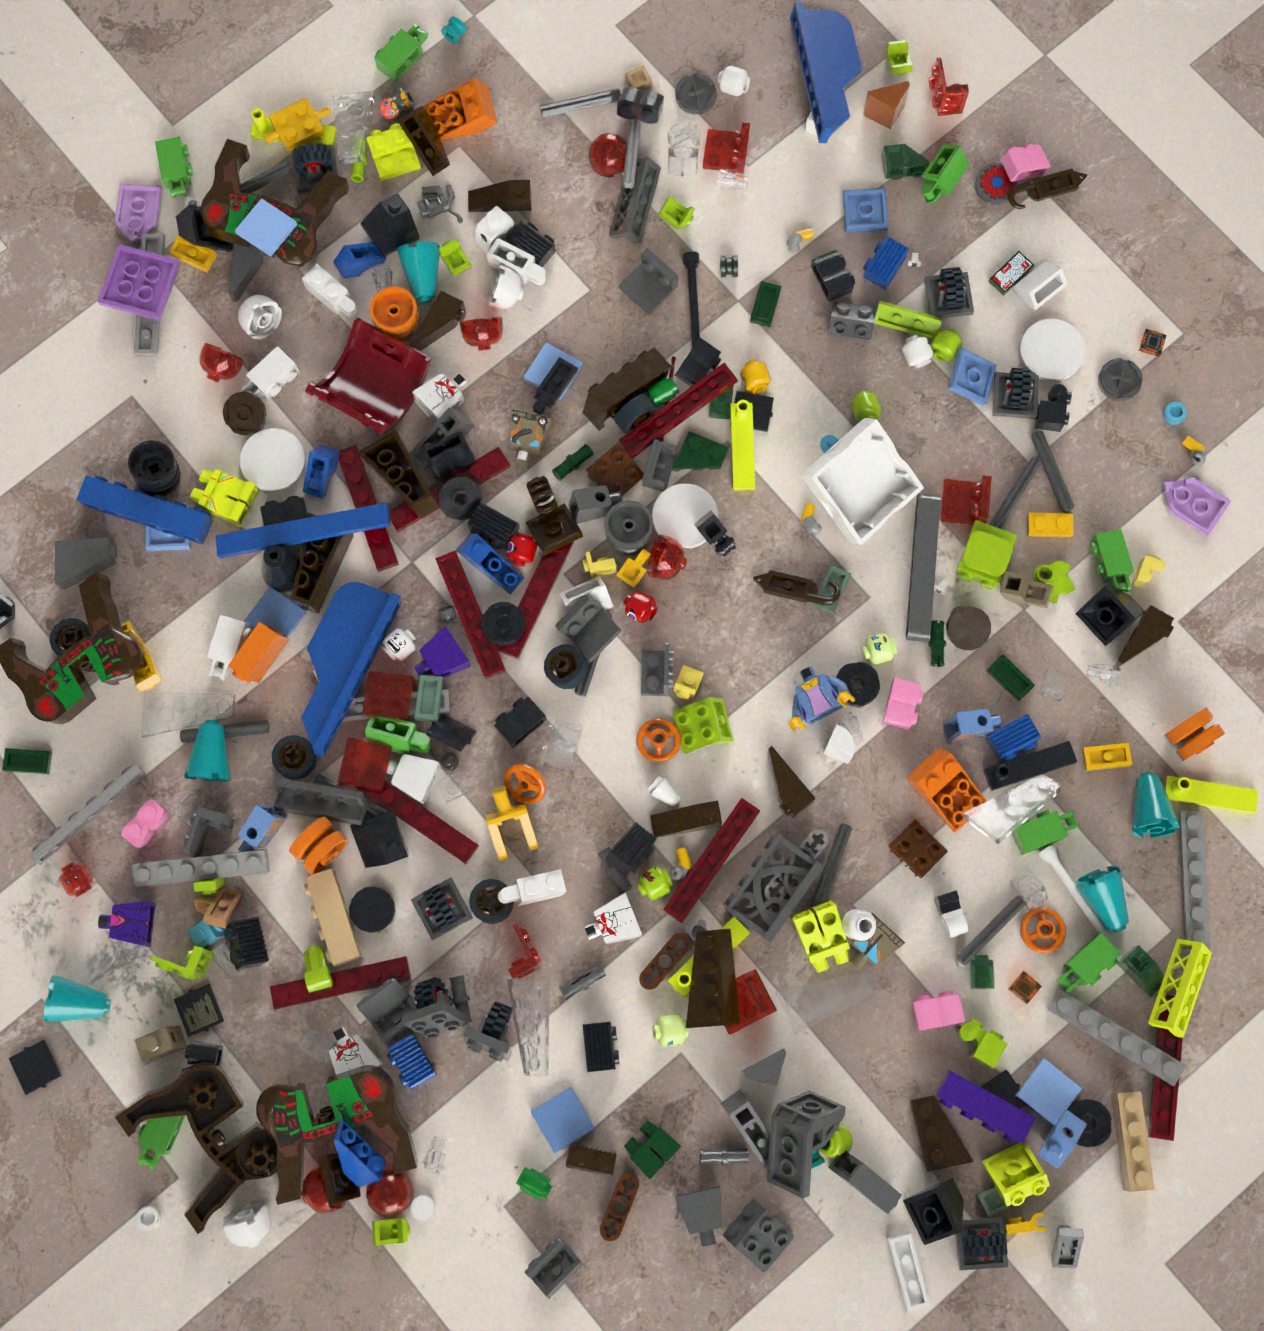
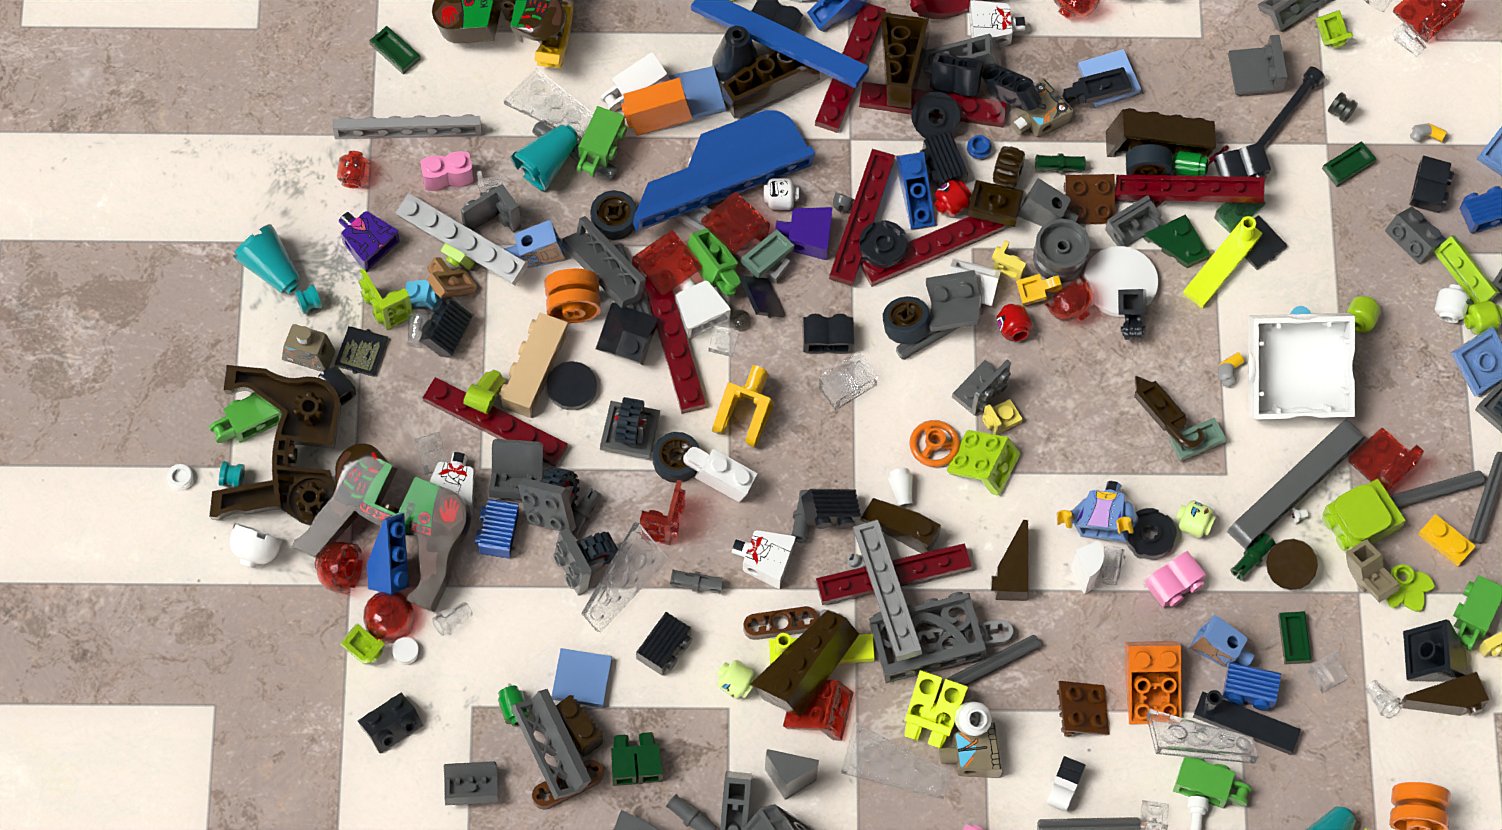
camera: 35 degrees right, 10 degrees down
(35, 1067) = (193, 289): black piece -> none
(127, 1005) = (308, 299): none -> teal wheel
(185, 1186) = (231, 474): none -> teal wheel
(239, 711) = (600, 140): none -> bright green brick
(336, 1183) = (353, 566): dark brown tile -> none
(458, 1270) = (391, 722): none -> black bracket
(497, 435) = (1012, 88): none -> black beam
(507, 495) = (979, 147): none -> blue plate
(527, 781) = (793, 385): orange piece -> none
(588, 1185) = (557, 744): none -> dark grey fence
(654, 883) = (827, 551): lime head -> none
(722, 880) = (887, 590): none -> light grey plate
(755, 376) = (1285, 215): yellow head -> none
(1107, 756) = (1323, 769): yellow plate -> none

